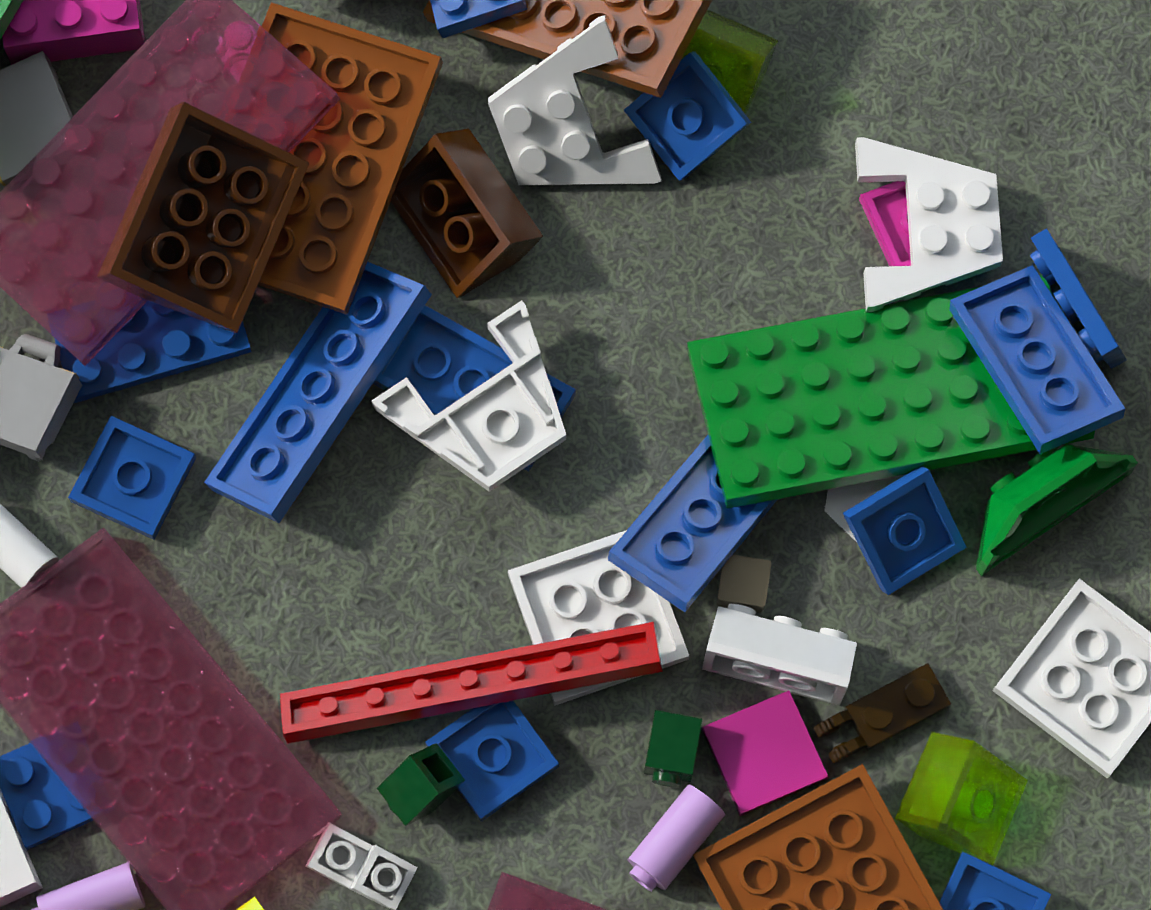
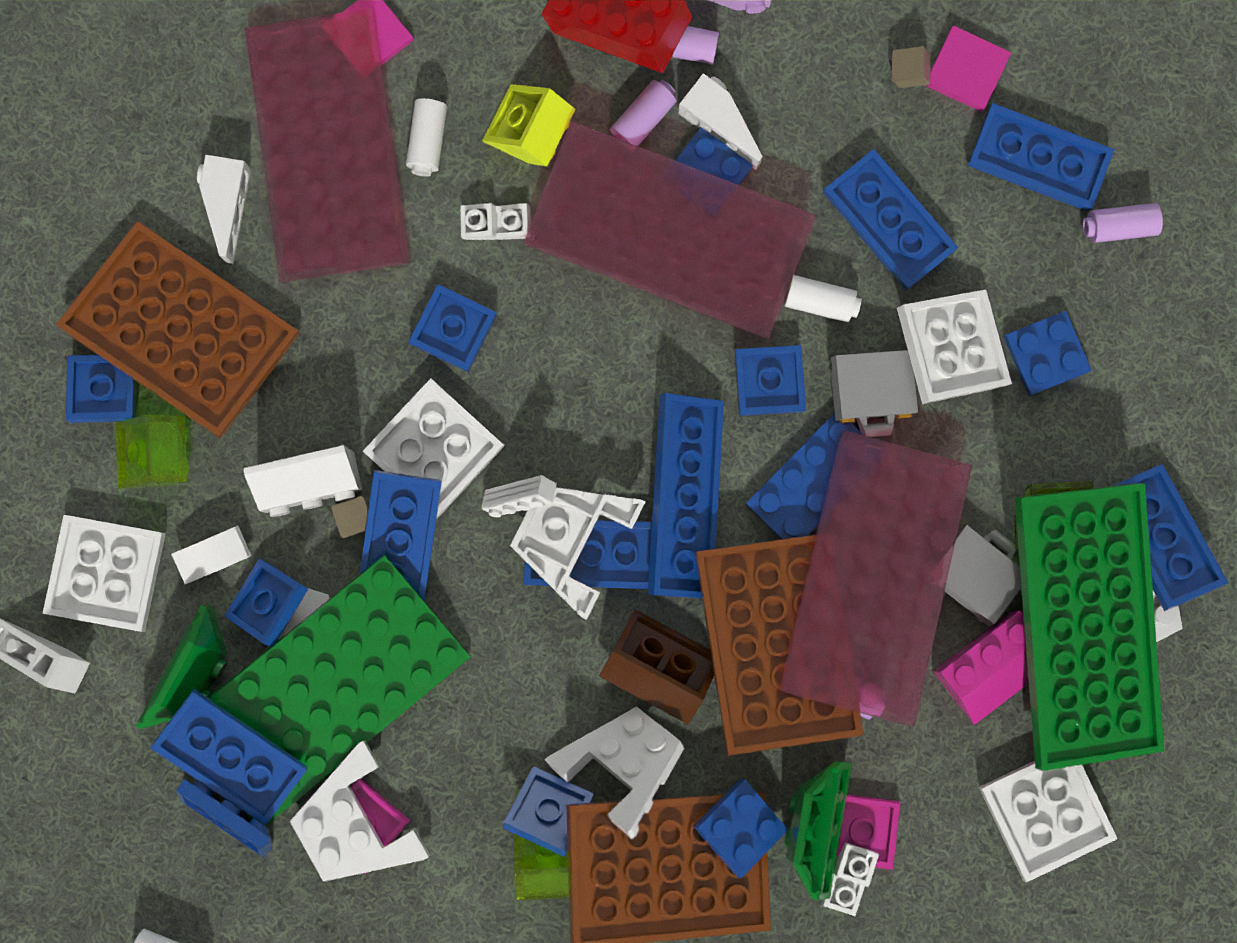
camera: 150 degrees right, 10 degrees up
(203, 218) = (817, 554): reddish brown slope -> none
(420, 784) = (483, 283): dark green brick -> none
(470, 682) = (485, 360): red plate -> none
(522, 487) = (519, 496): none -> white piece
(672, 748) = (343, 388): dark green brick -> none
(674, 839) = (314, 334): lavender brick -> none
(764, 753) = (287, 418): dark pink tile -> none
(887, 712) = (223, 484): dark brown hinge -> none
(945, 626) = (211, 554): none -> white slope

